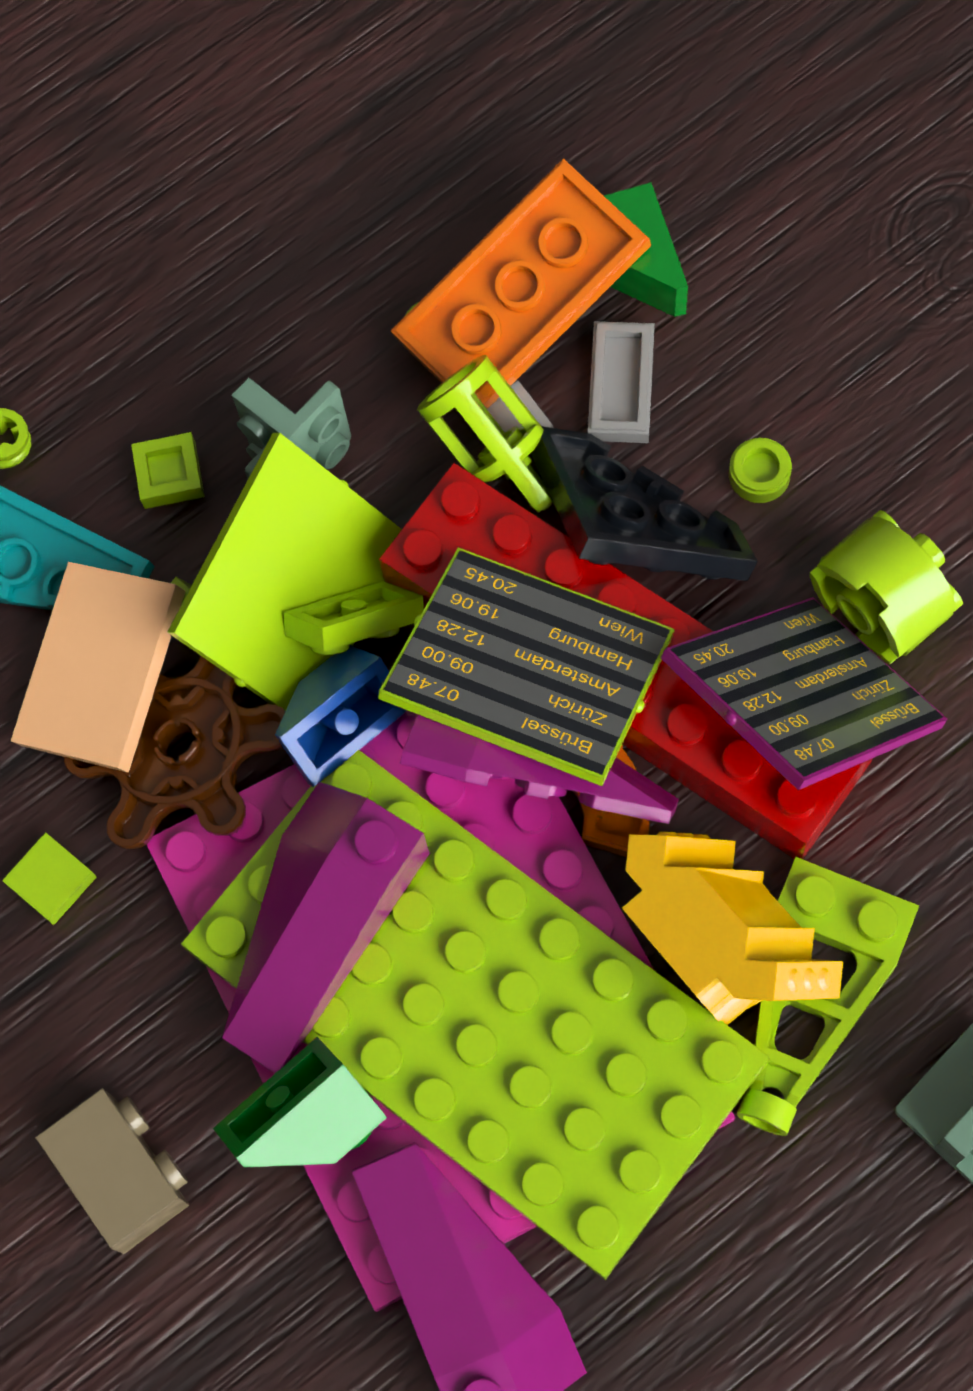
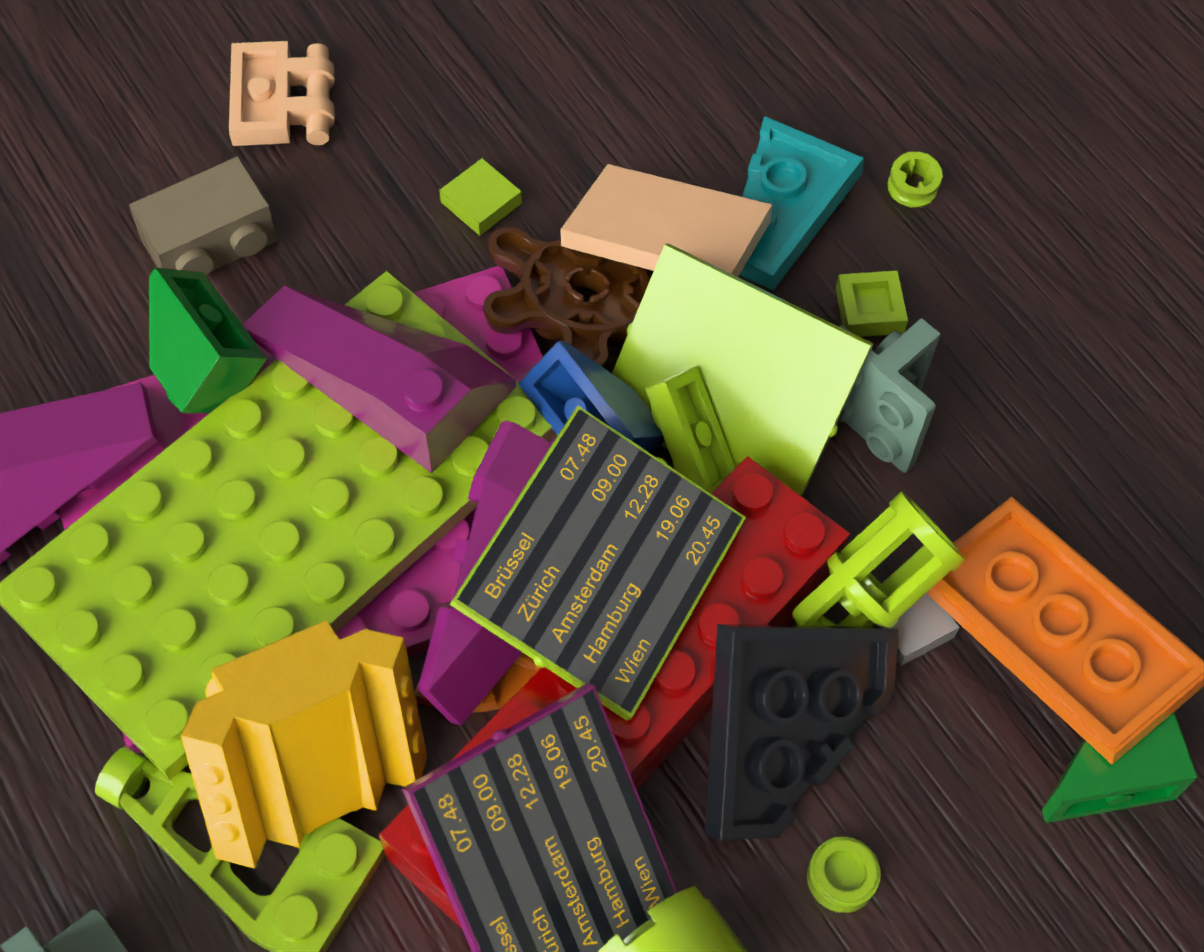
camera: 85 degrees right, 10 degrees down
(621, 381) = (959, 738): light grey tile -> none

